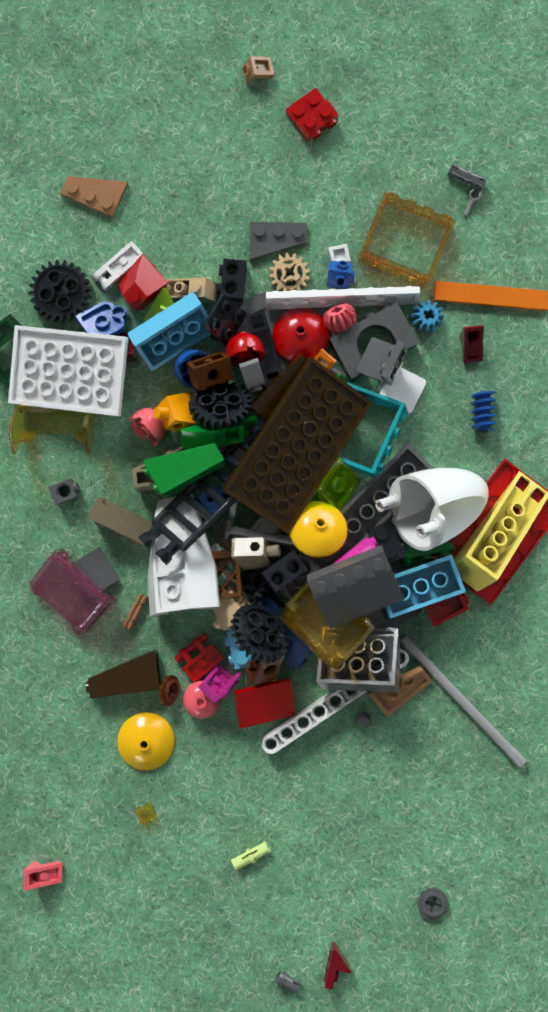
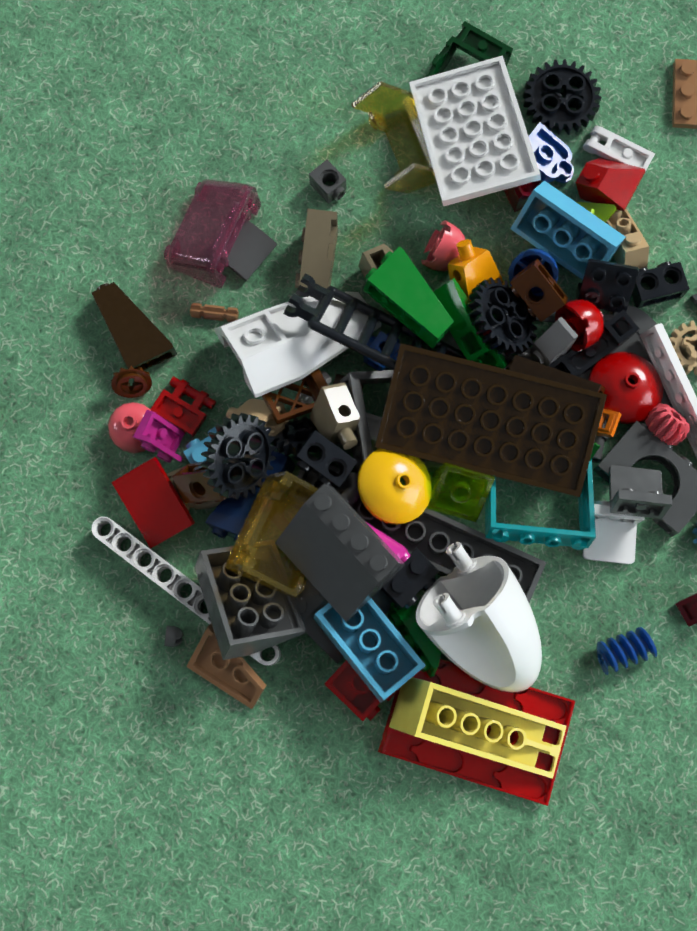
camera: 75 degrees right, 10 degrees down
(148, 728) = (70, 390): yellow dish -> none
(512, 753) = (195, 847): light grey piece -> none

